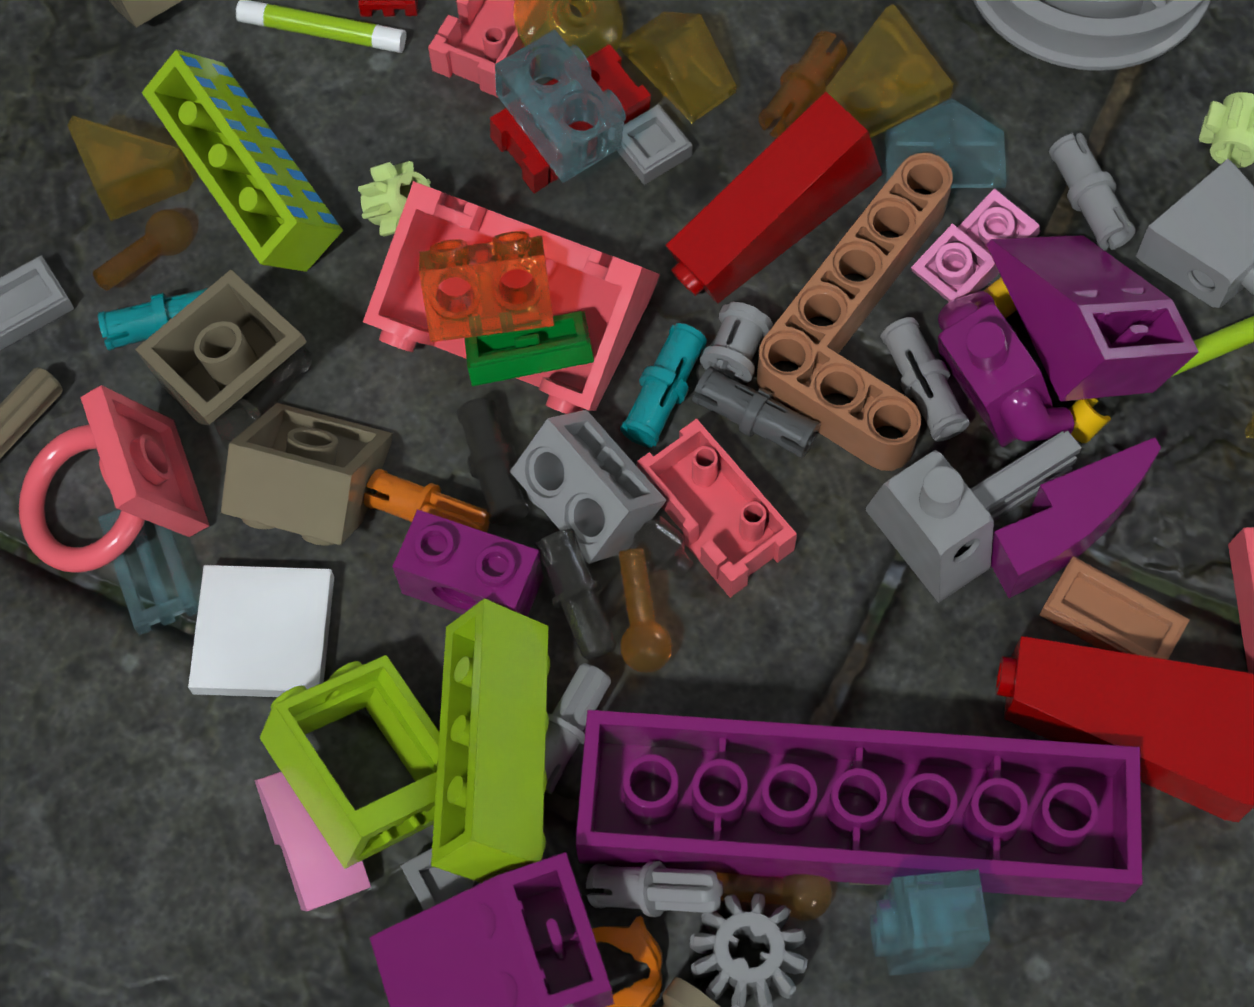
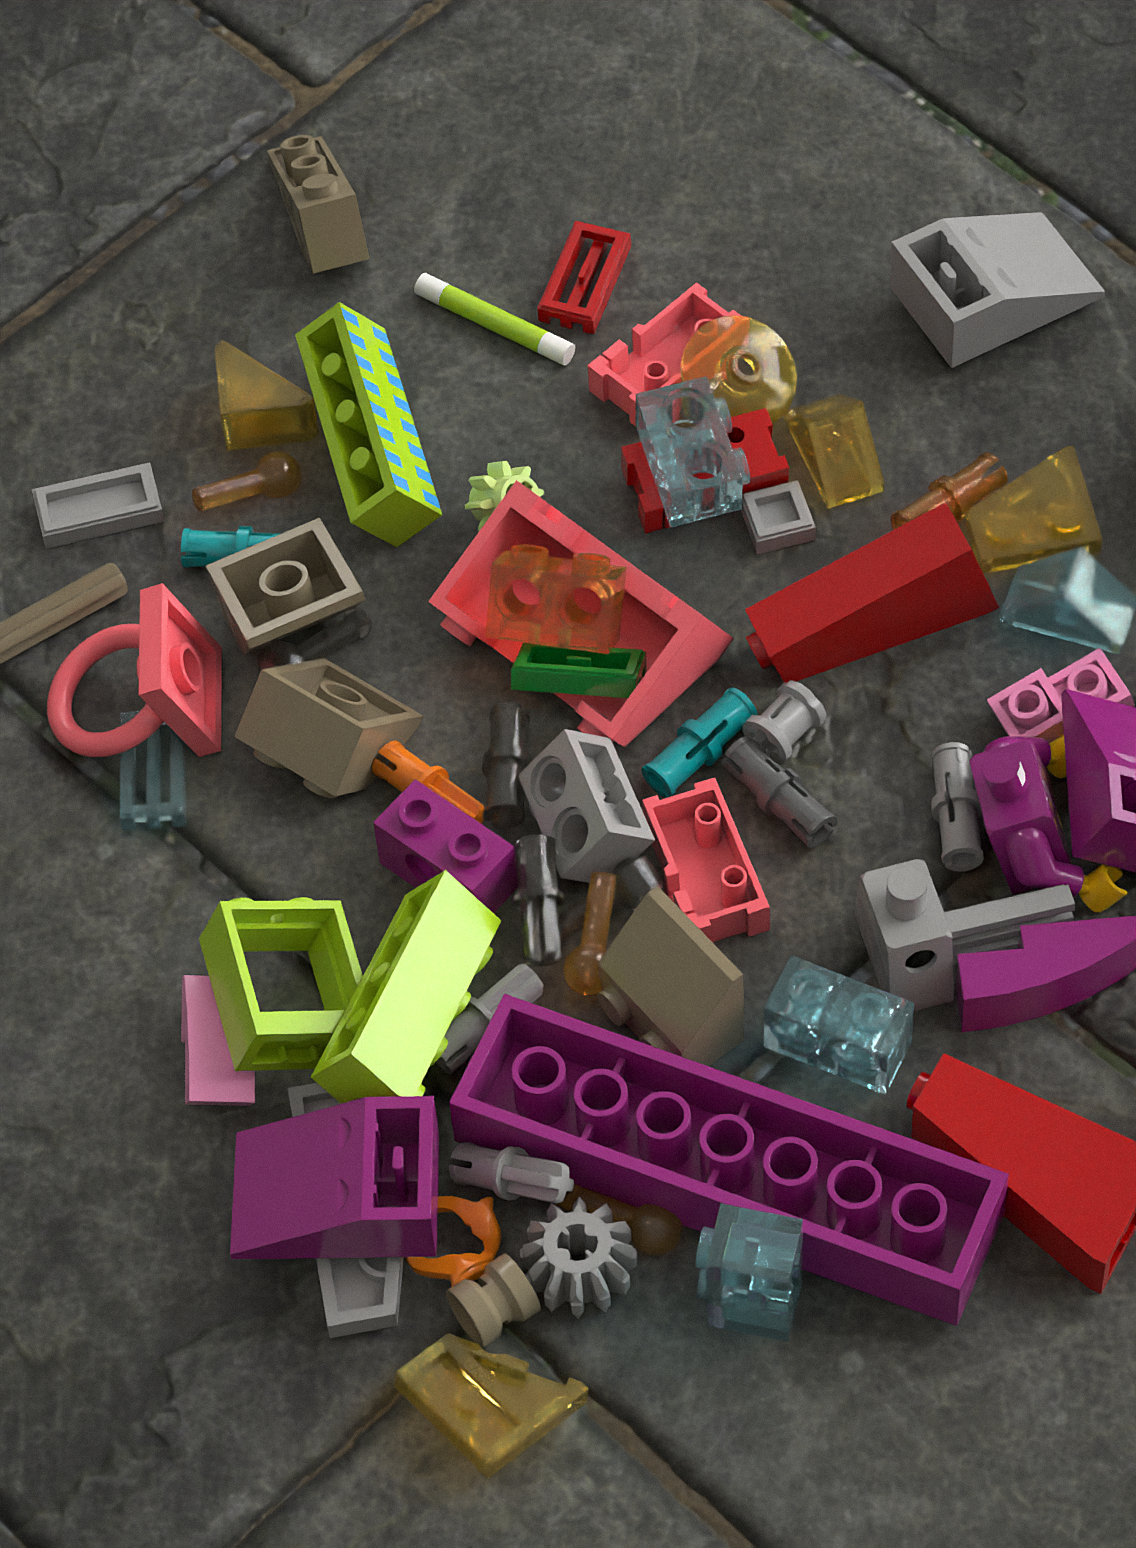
camera: 20 degrees right, 10 degrees down
(260, 630) = (234, 850): white tile -> none
(738, 646) = (672, 984): none -> dark tan slope
(847, 305) = (910, 718): nougat beam -> none
(905, 632) = (838, 1024): none -> clear light blue brick
(1112, 613) = (1051, 1067): nougat tile -> none

